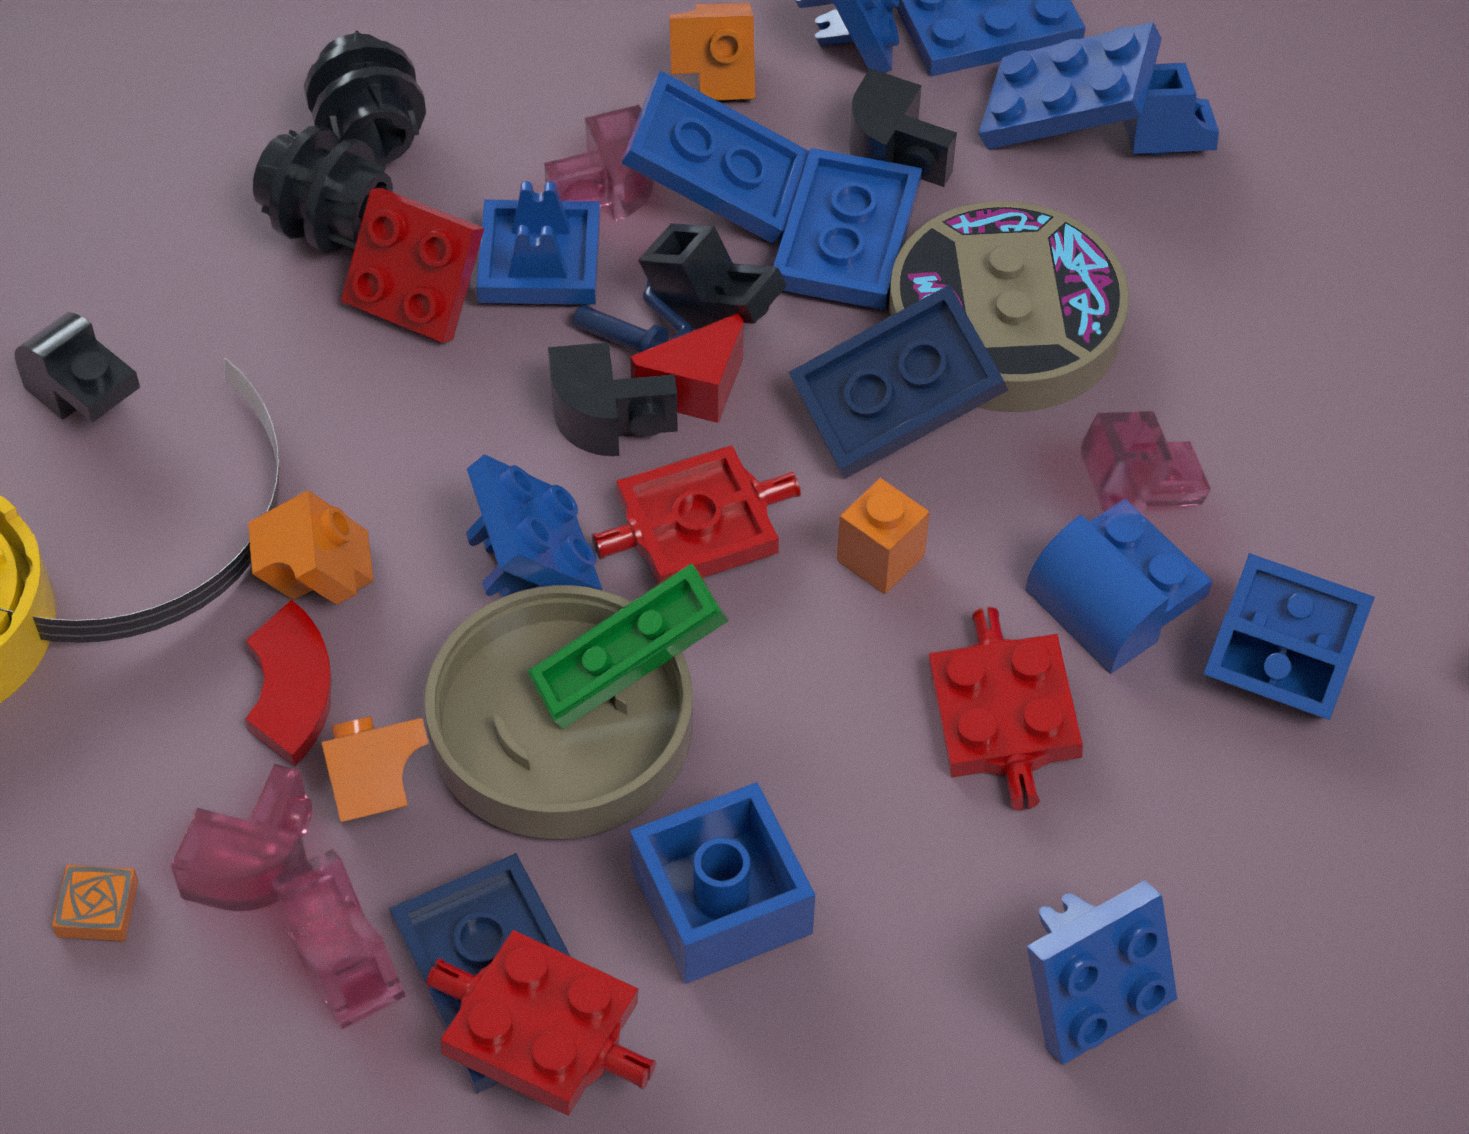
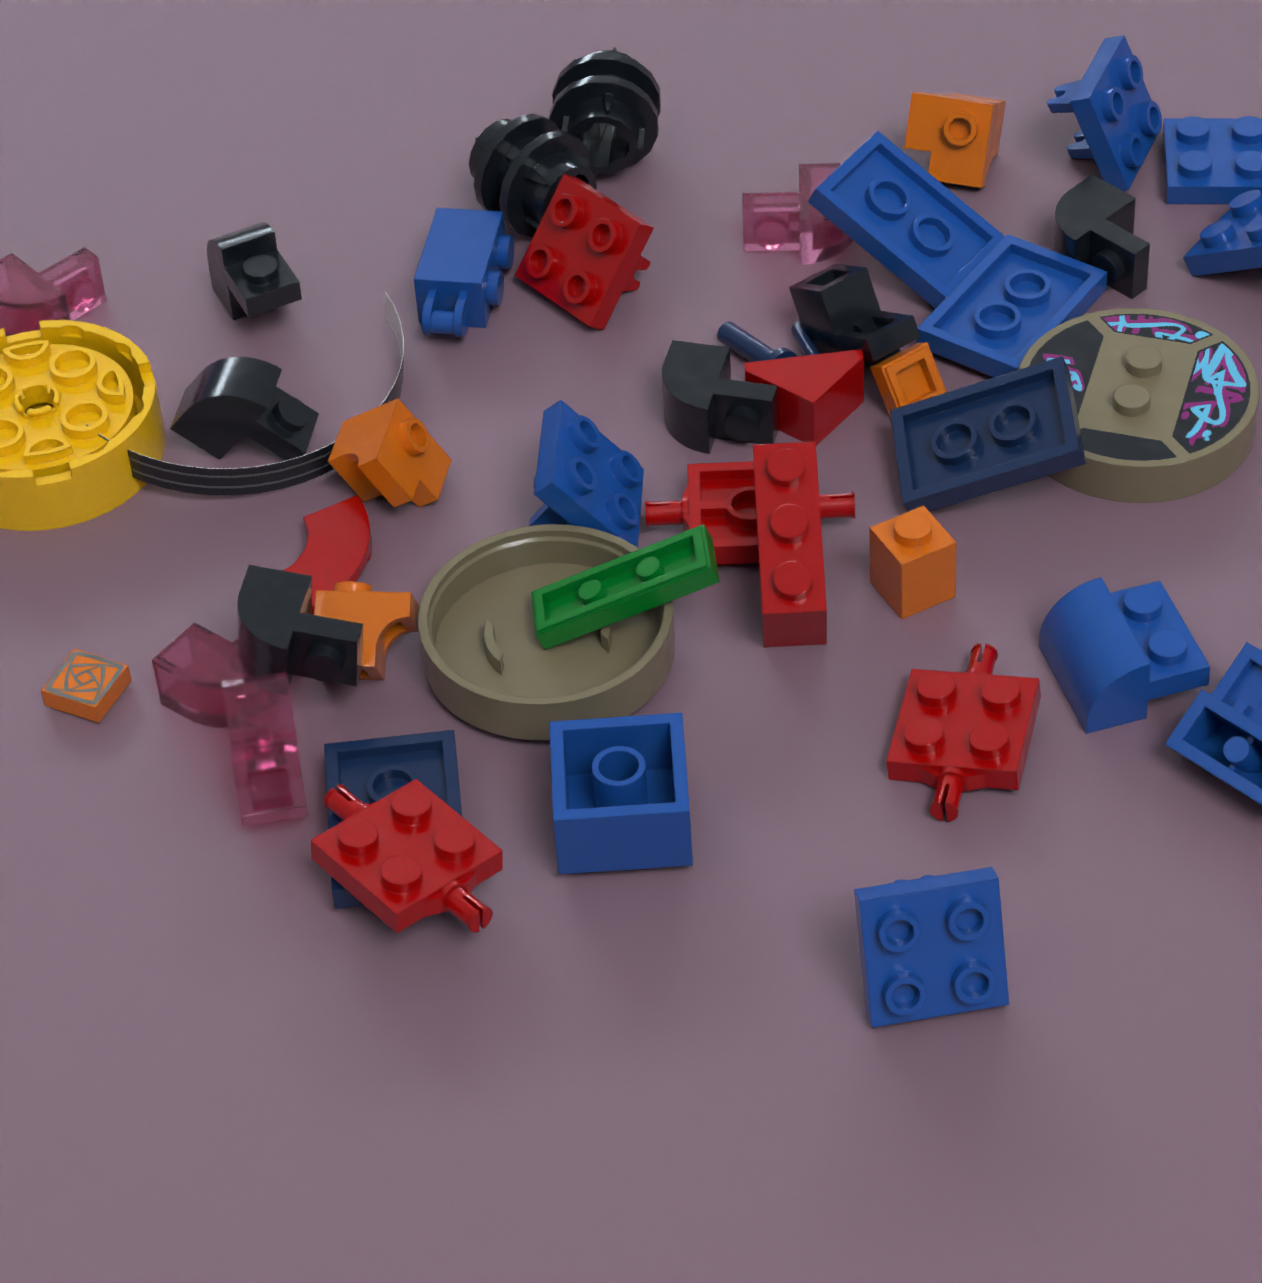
camera: 25 degrees right, 10 degrees down
(131, 523) = (242, 399): none -> black brick
(287, 312) = (462, 270): none -> blue brick
(305, 812) = (284, 636): none -> black brick
(539, 249) = (712, 267): blue plate -> none
(768, 553) = (790, 544): none -> red brick
(788, 332) = (908, 377): none -> orange tile
(1134, 461) = (1177, 550): clear pink brick -> none

